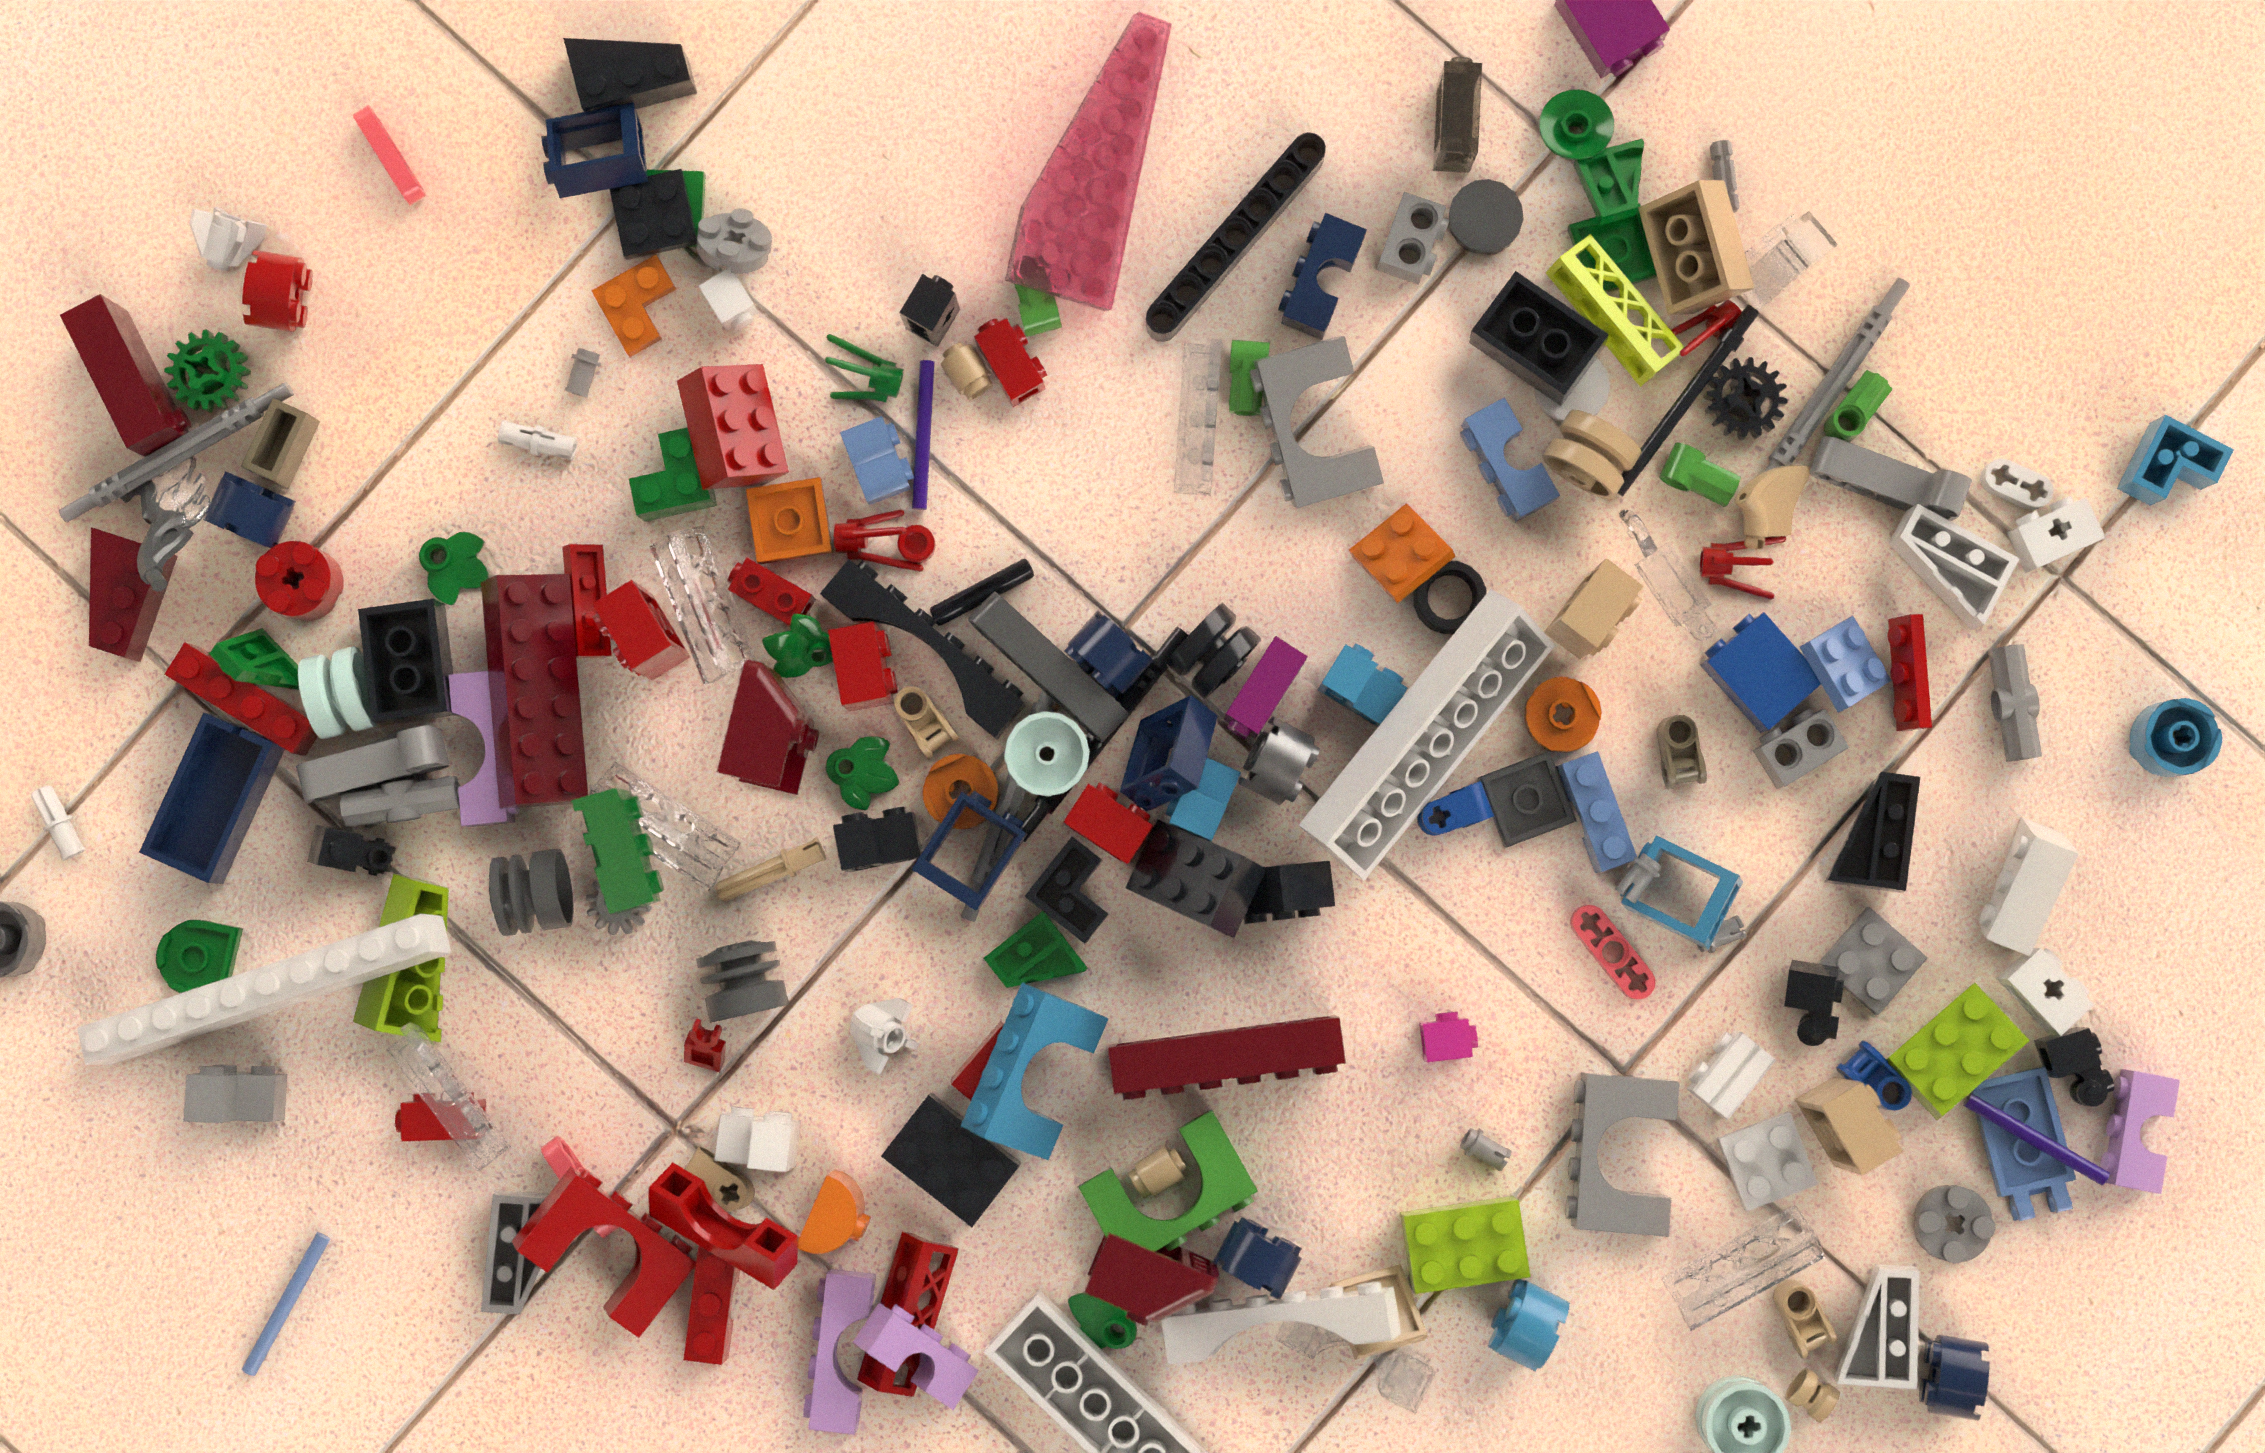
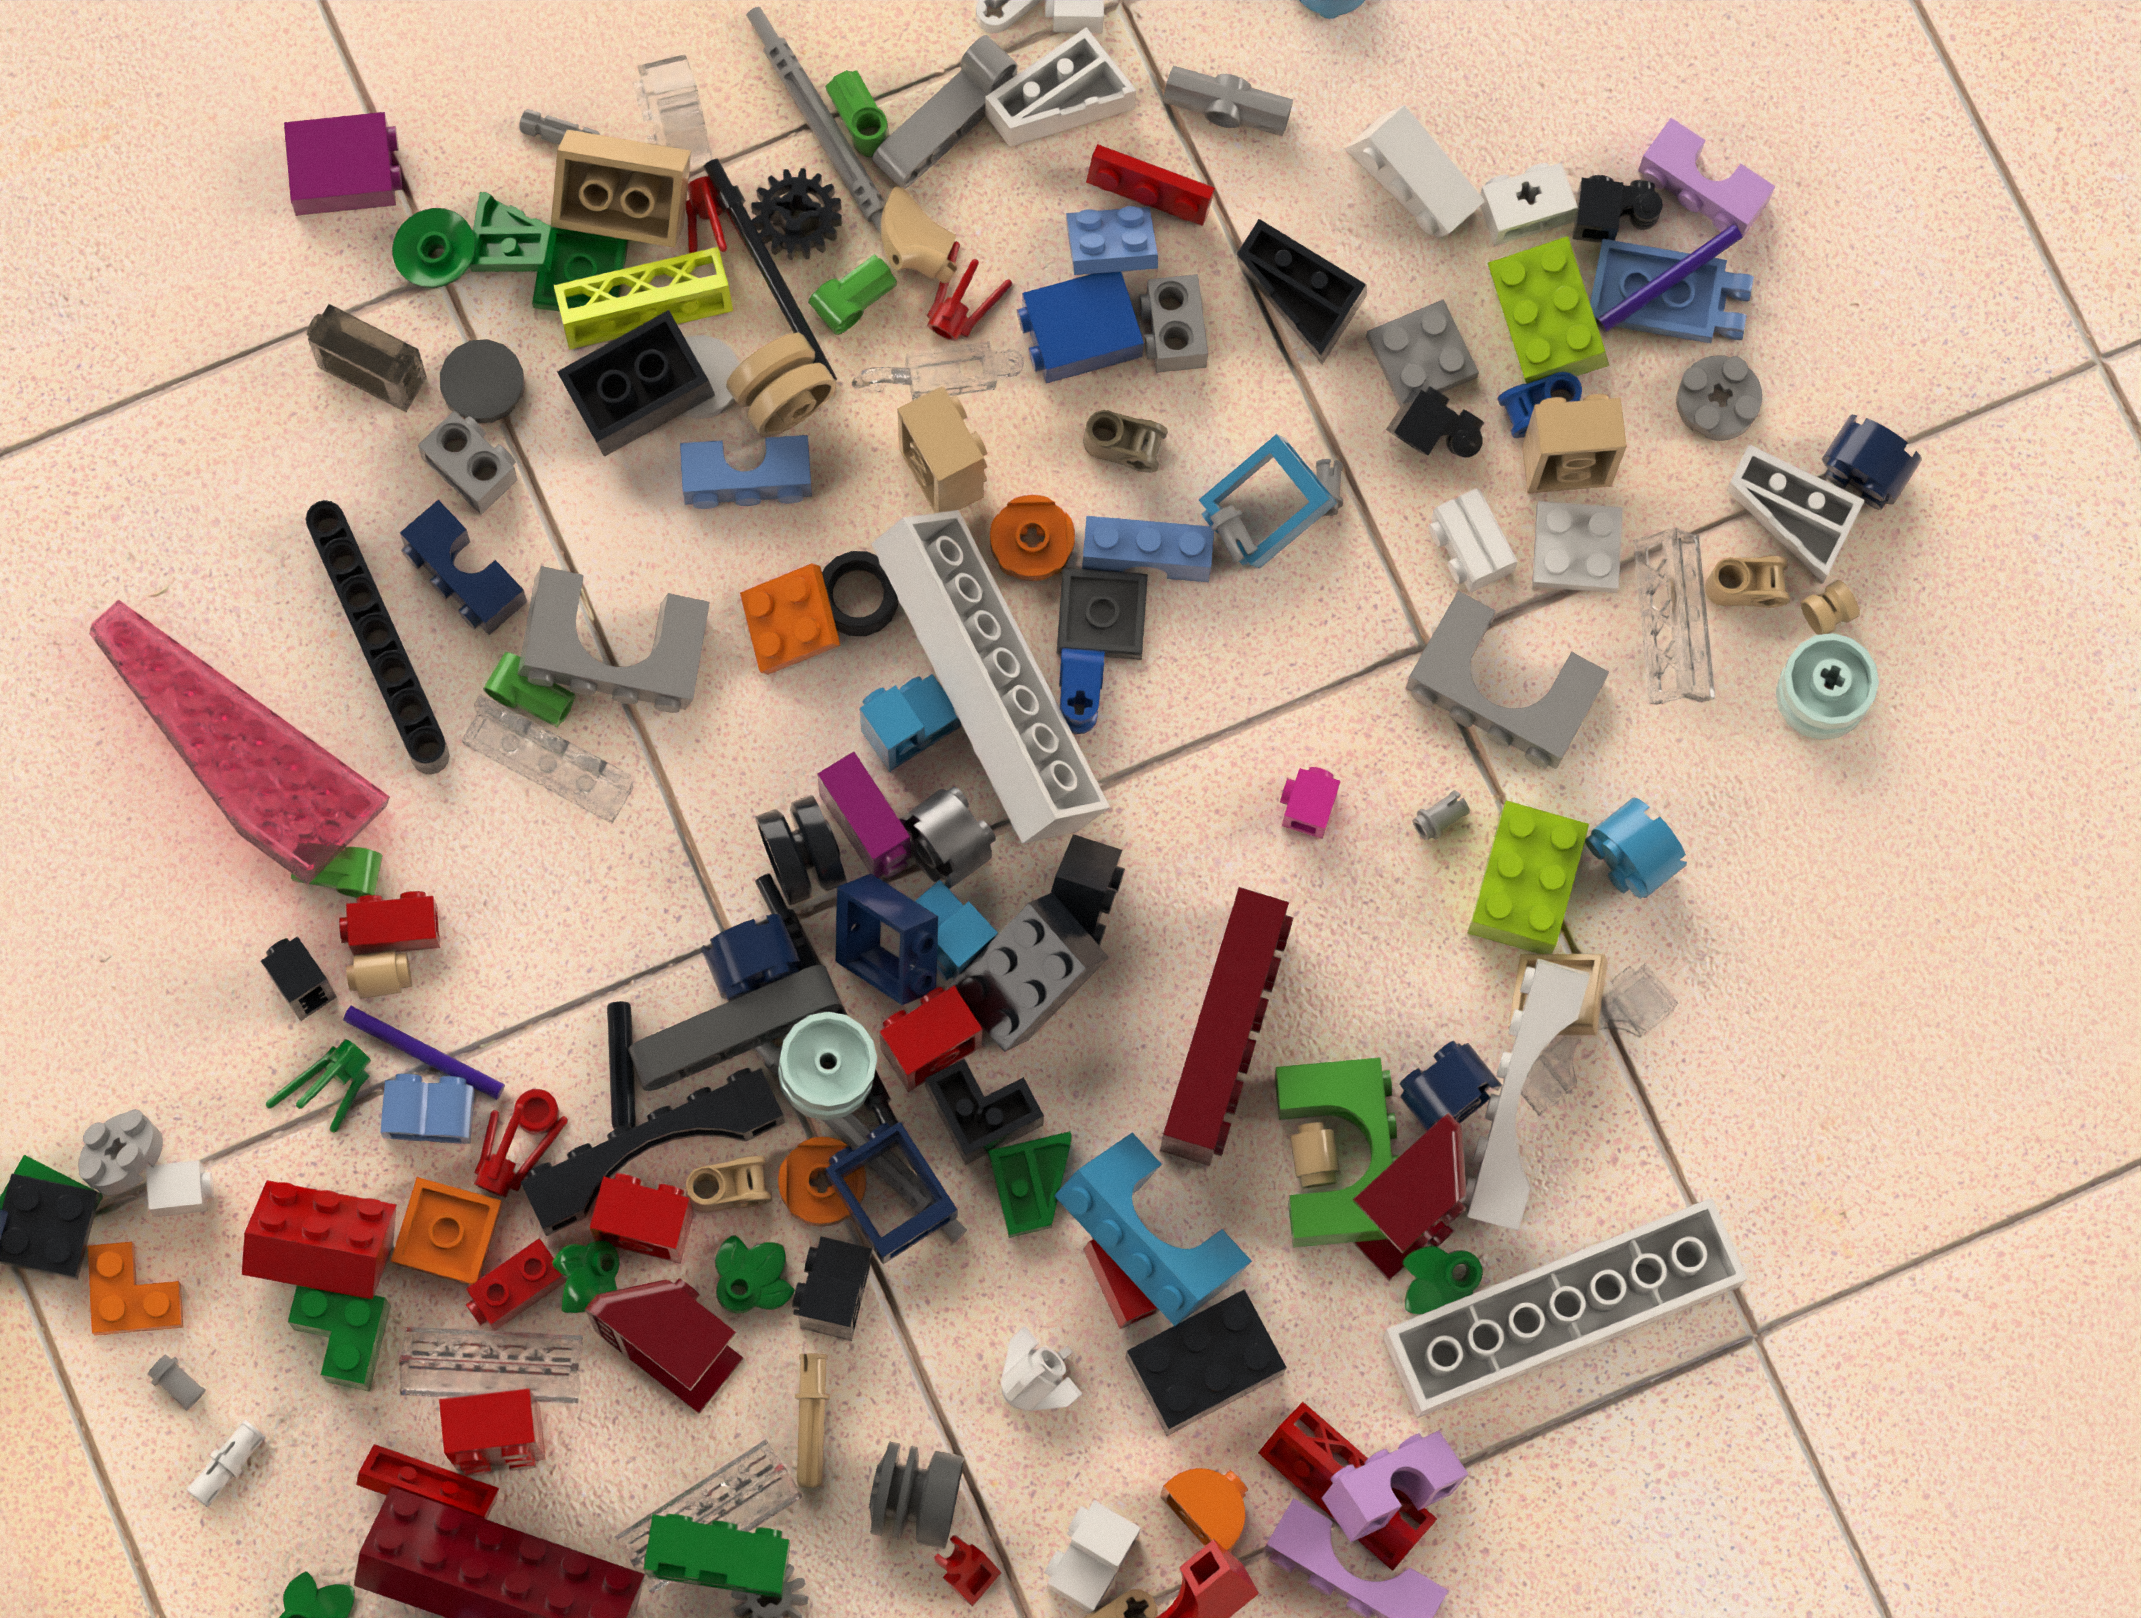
camera: 75 degrees left, 10 degrees down
(1623, 980) = (1330, 602): coral beam -> none

